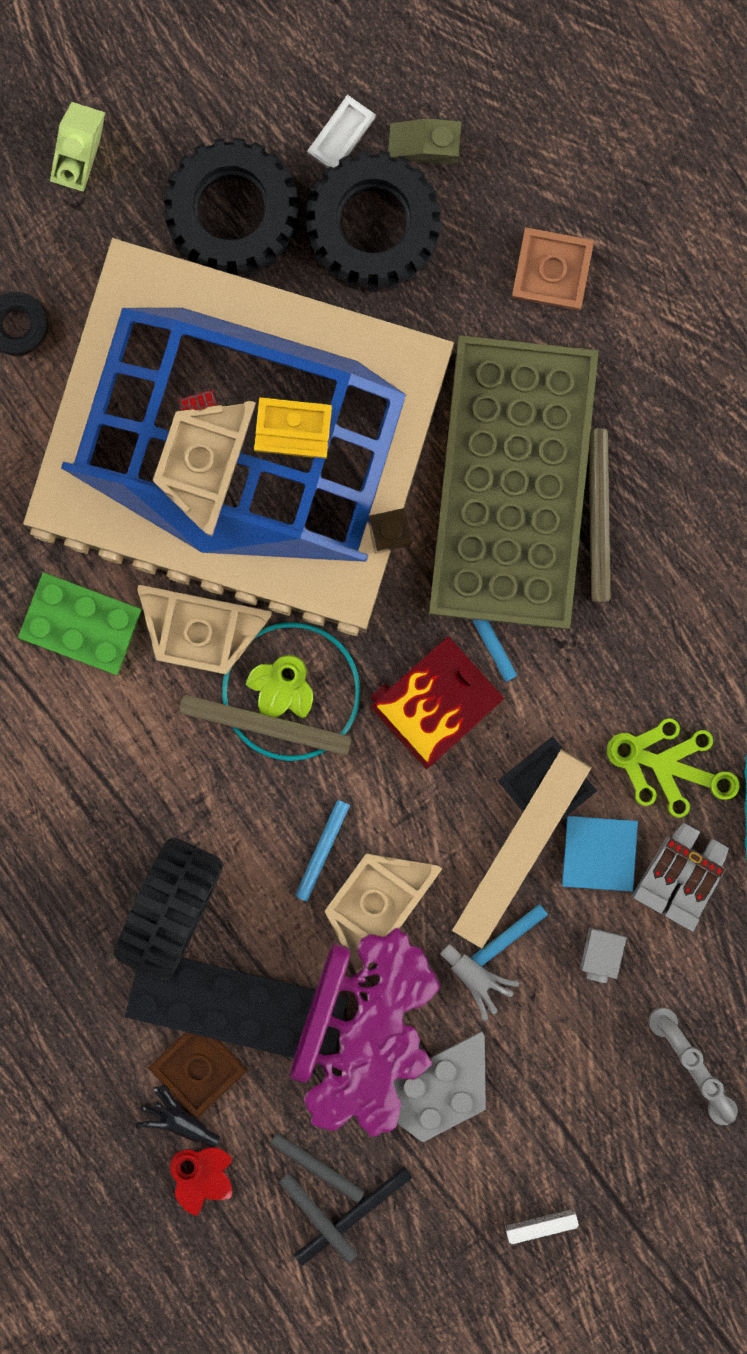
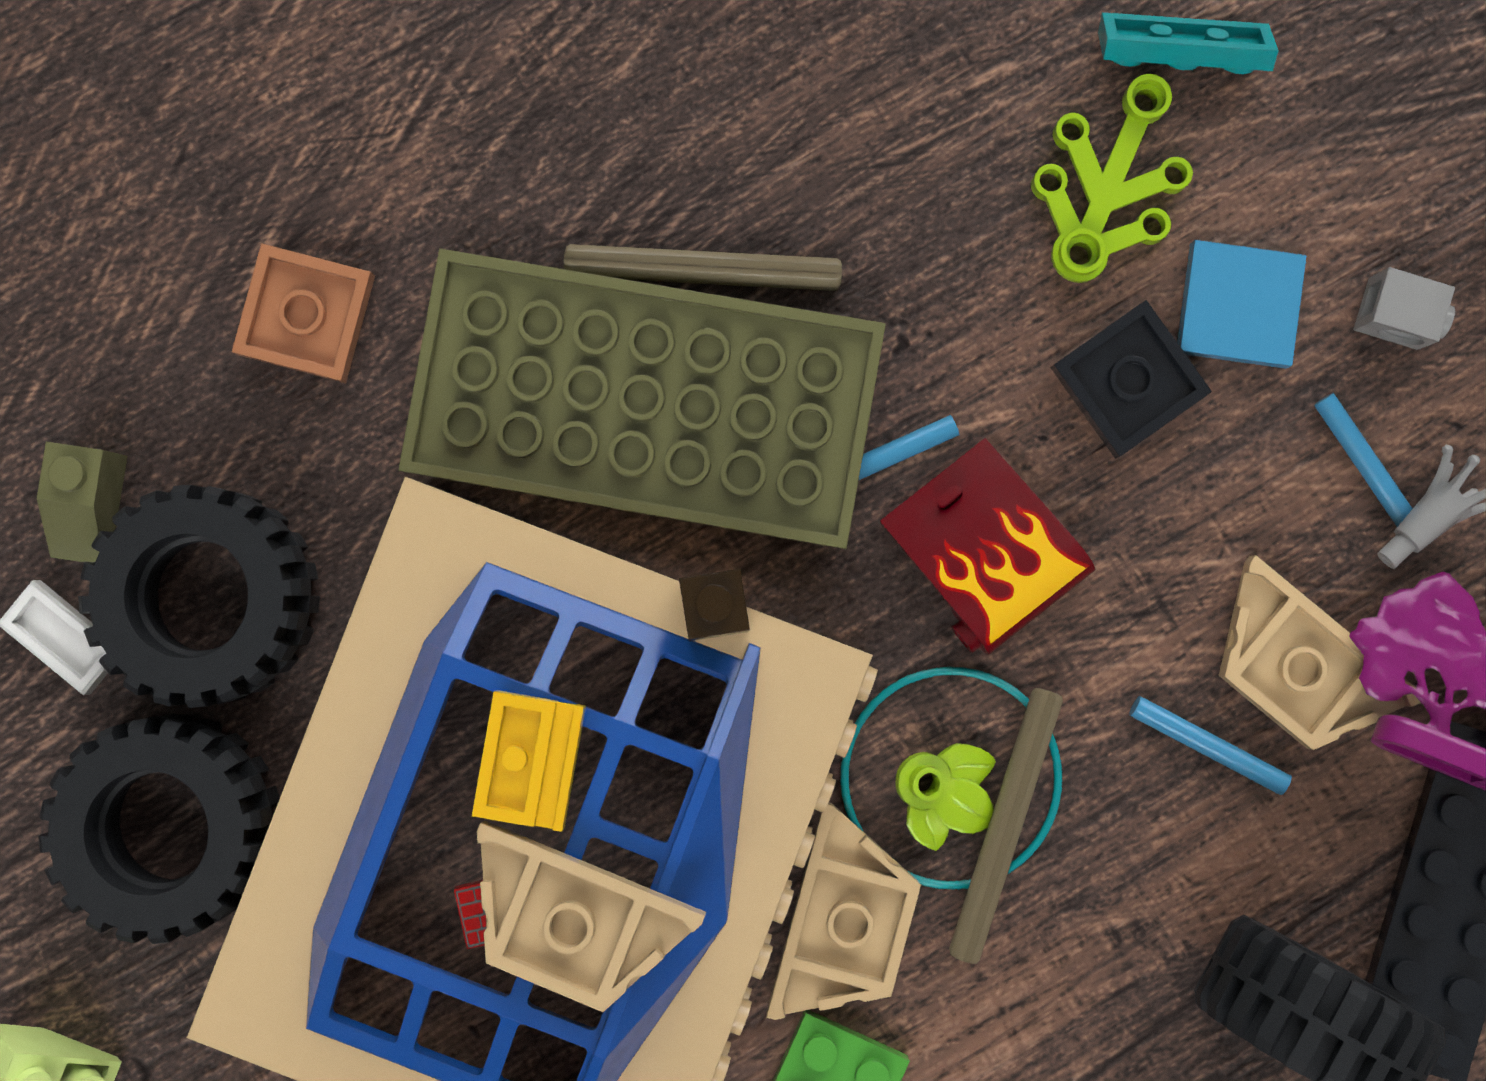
camera: 75 degrees left, 0 degrees up
(521, 848) = (1232, 424): tan tile -> none
(682, 865) = (1292, 177): light grey hips -> none

